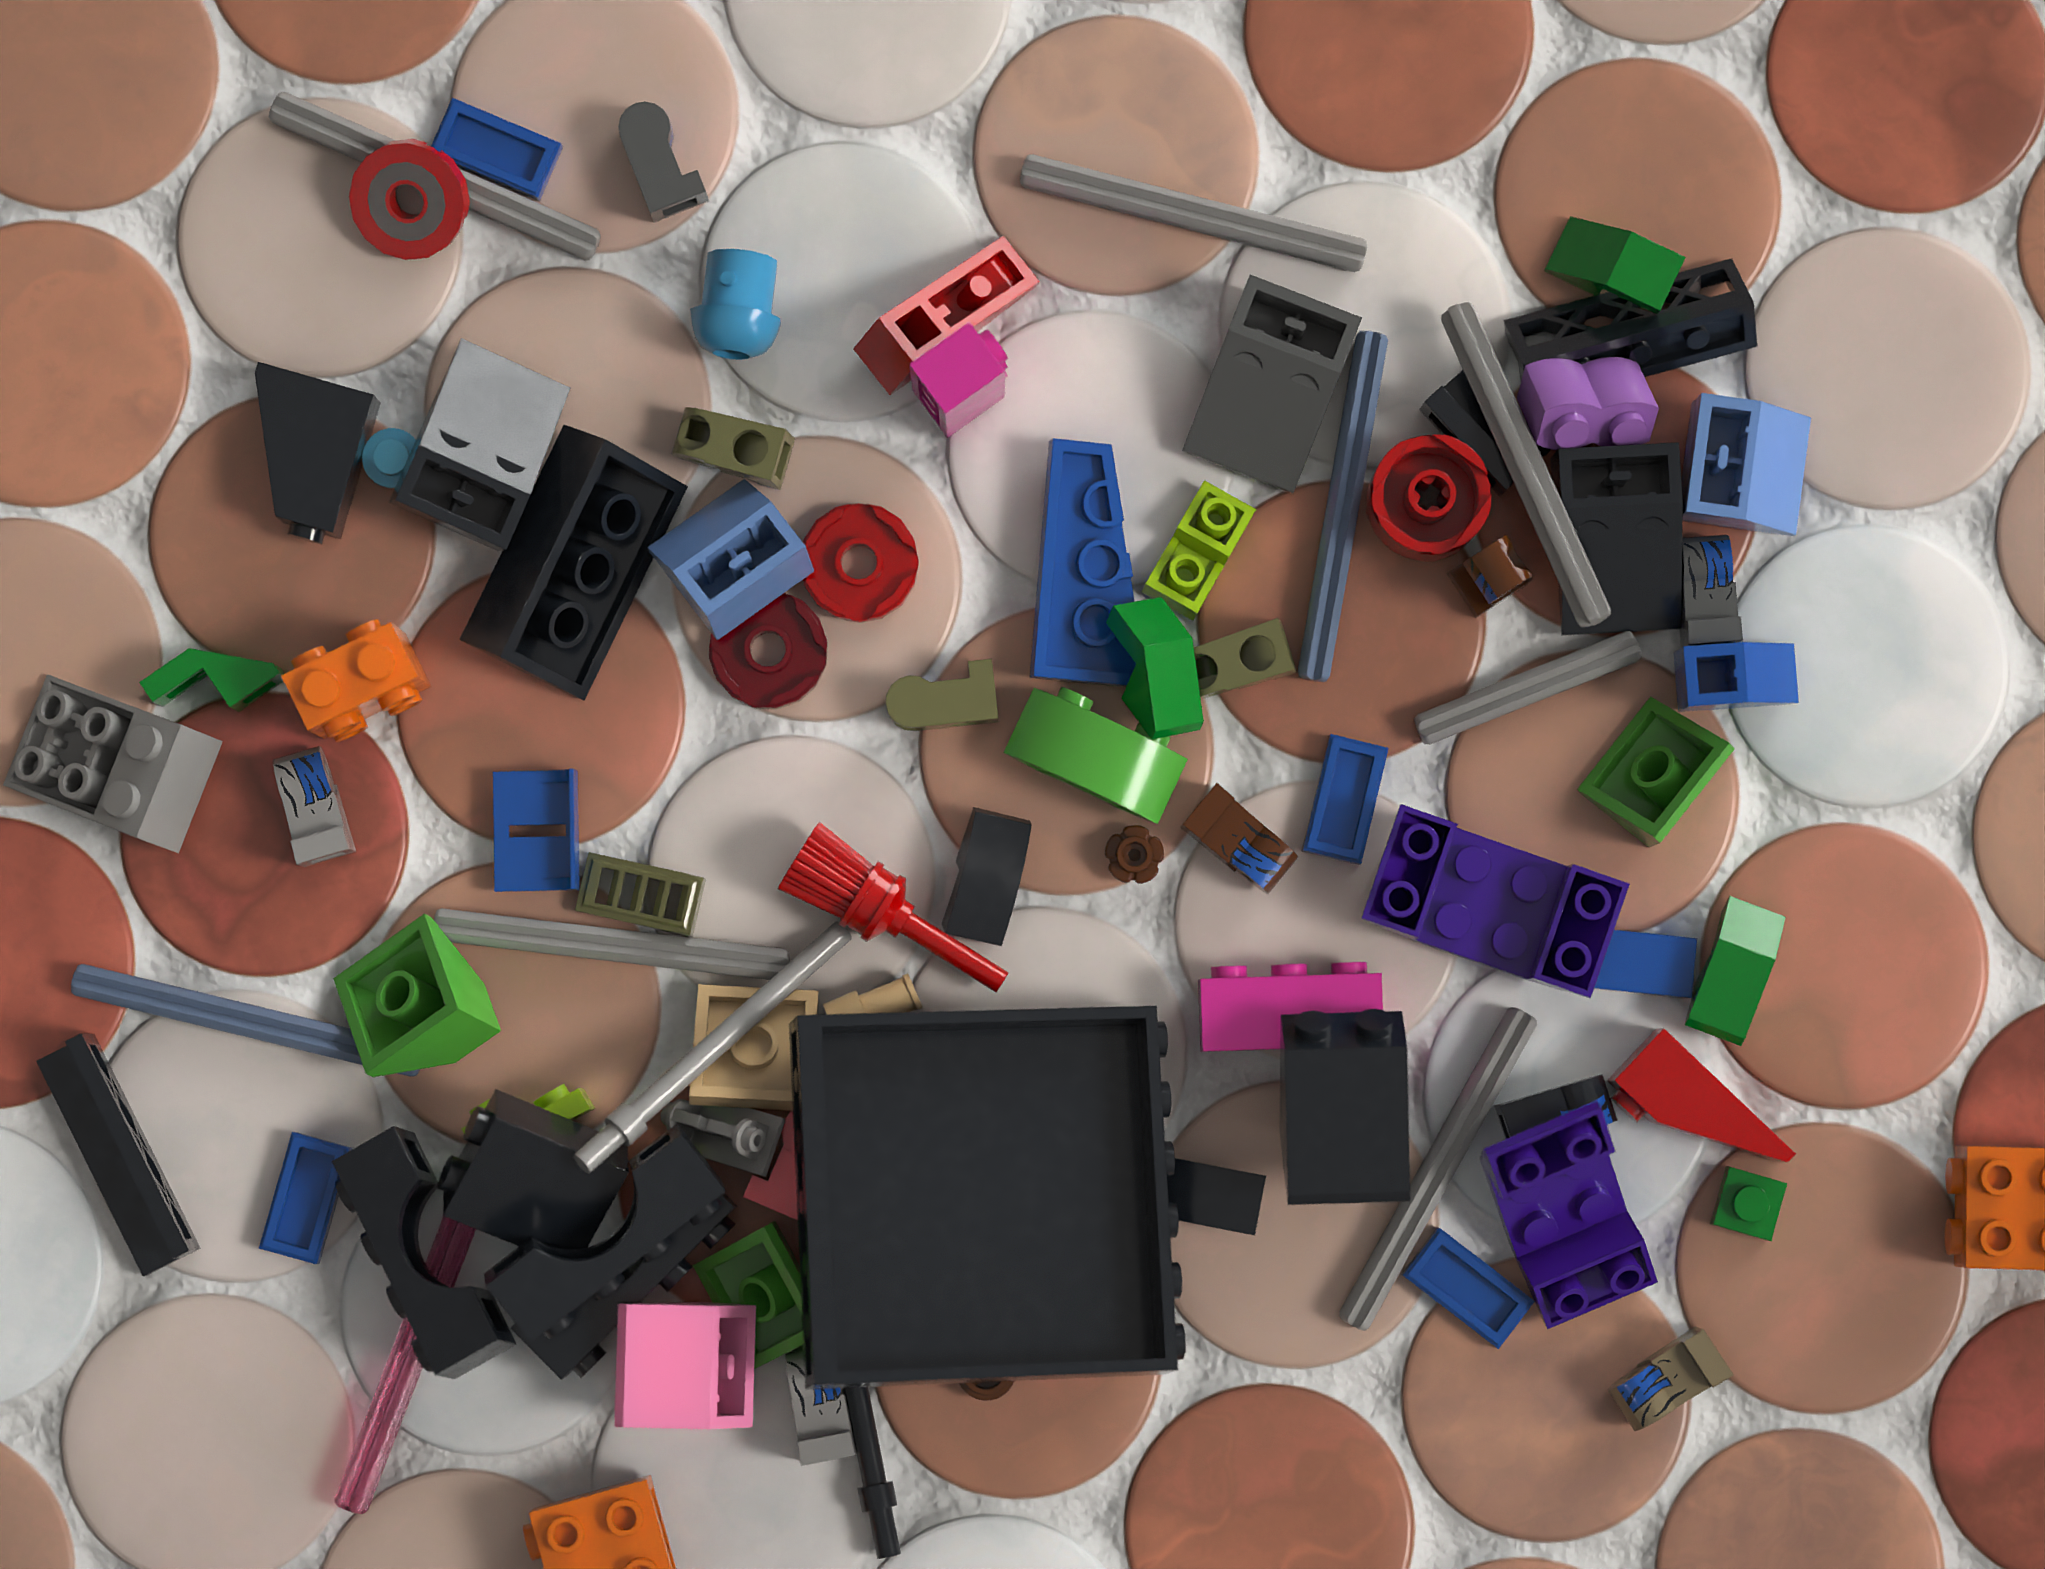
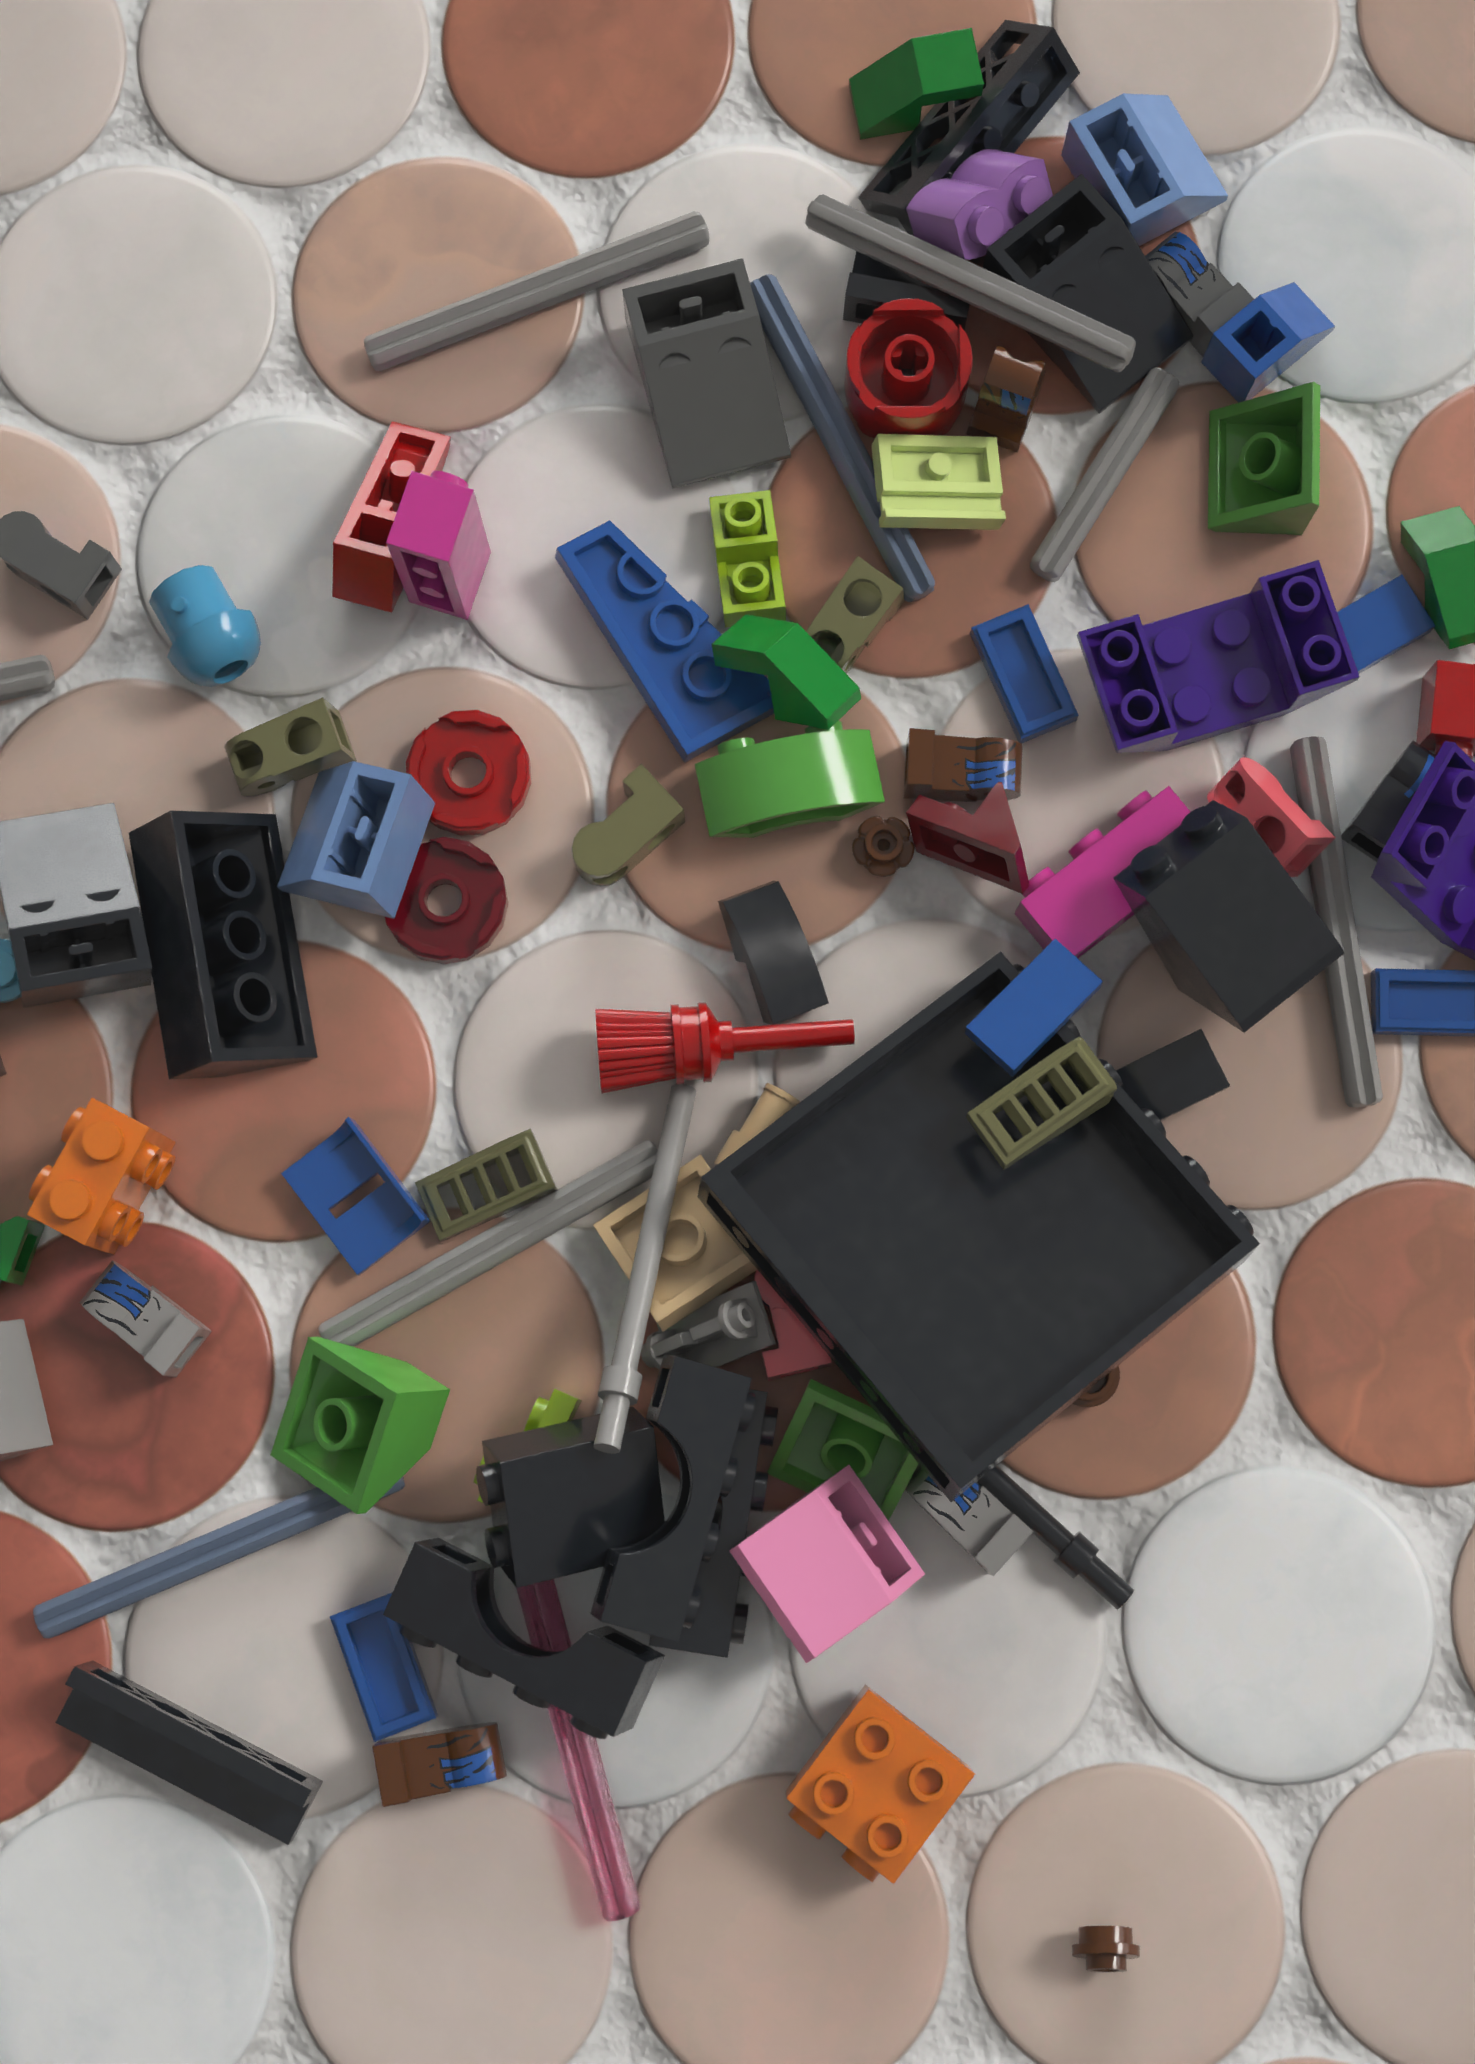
camera: 30 degrees left, 5 degrees down
(295, 1297) = (437, 1762): none -> reddish brown leg
(1146, 1068) = (1033, 1007): none -> blue tile
(1147, 1146) = (1086, 1071): none -> olive slope
(1205, 911) = (975, 843): none -> dark red slope
(1389, 601) = (938, 481): none -> yellowish green plate
(1440, 1053) = (1274, 815): none -> coral leg

